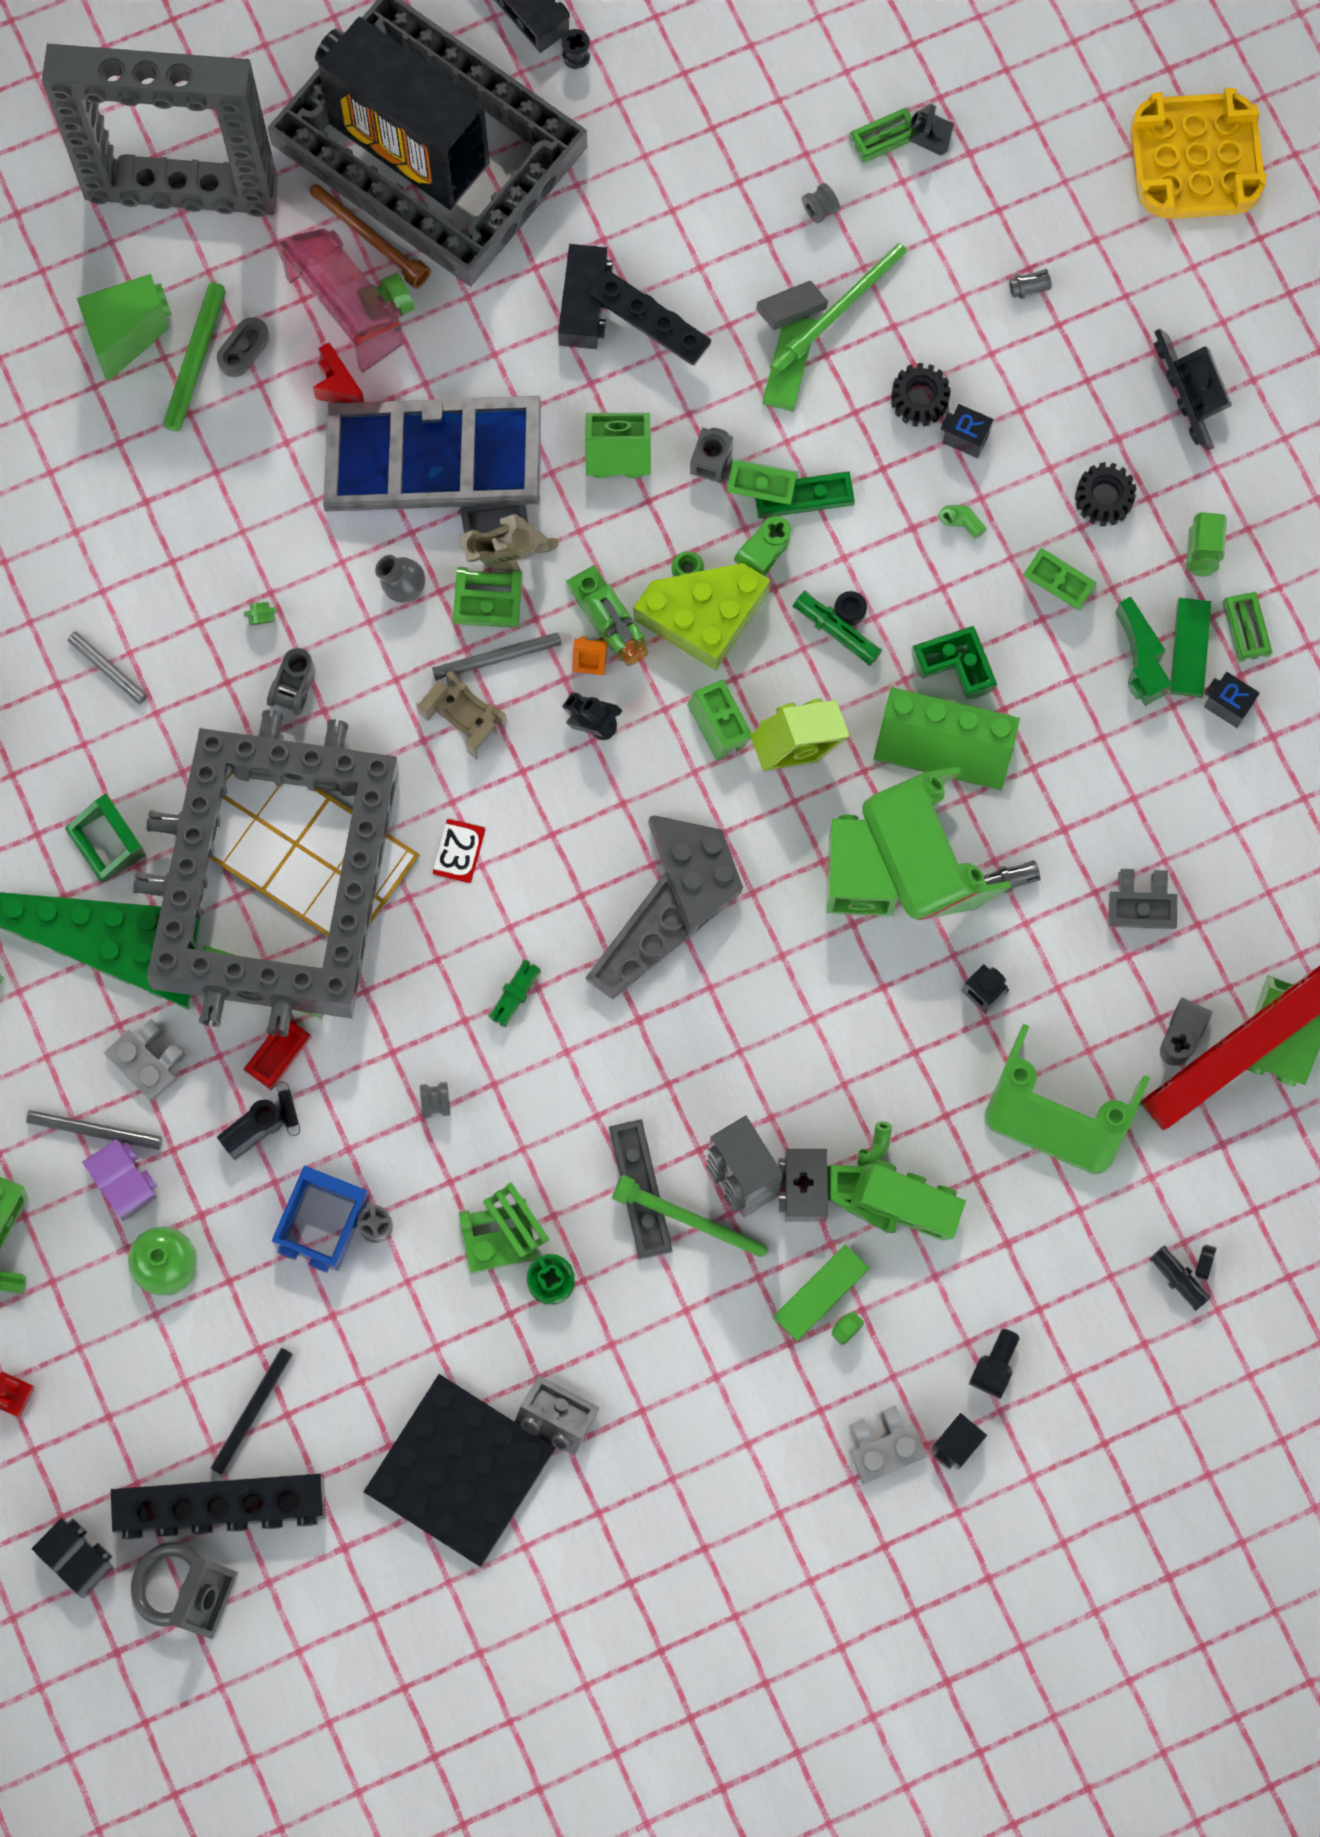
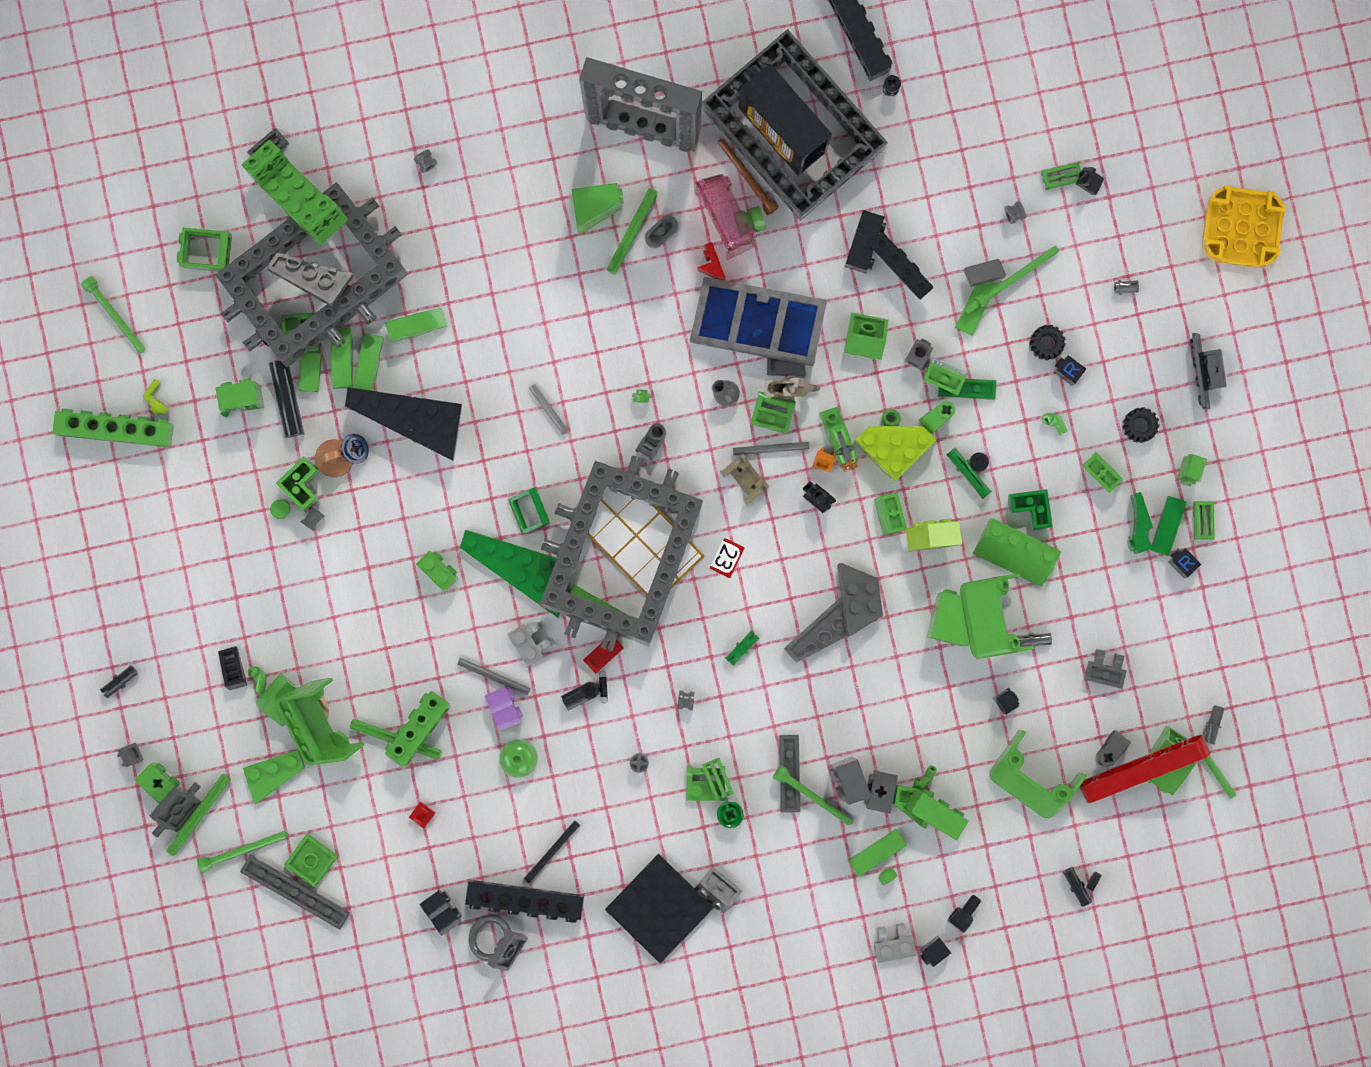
camera: 10 degrees right, 10 degrees up
(313, 1178) = (604, 777): blue window -> none

